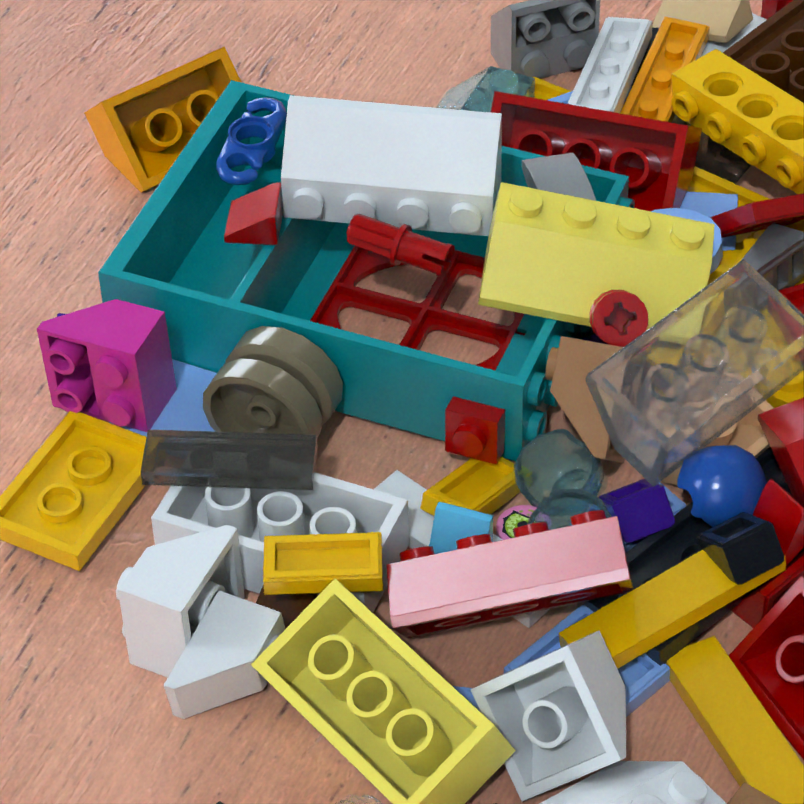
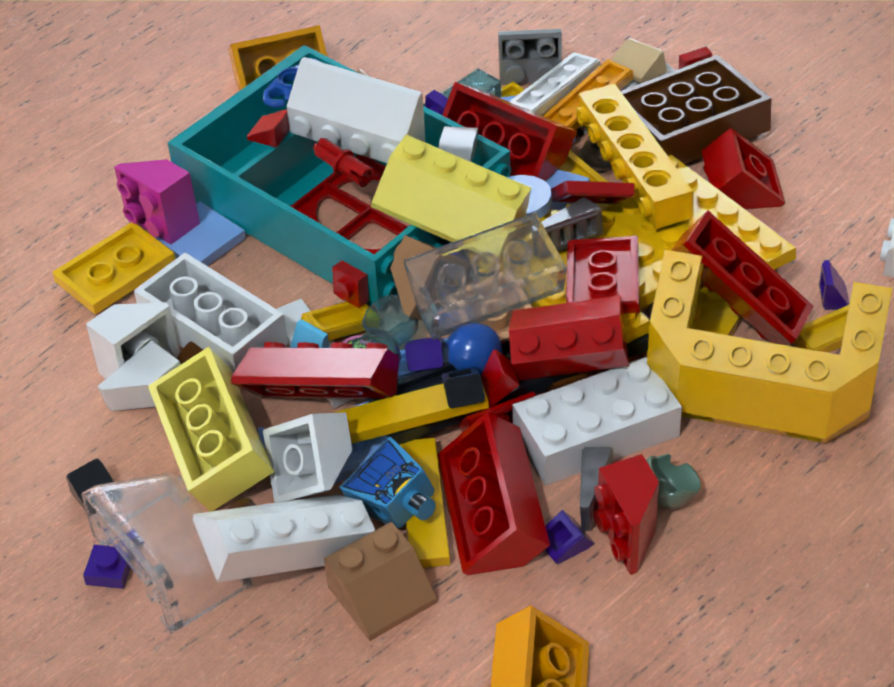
camera: 20 degrees right, 0 degrees up
(229, 459) = (191, 267): clear smoke tile -> none
(273, 385) = (243, 237): dark tan wheel -> none
(314, 560) = (224, 338): yellow tile -> none
(607, 310) = (454, 231): red wheel -> none
(708, 724) = (391, 486): none -> torso

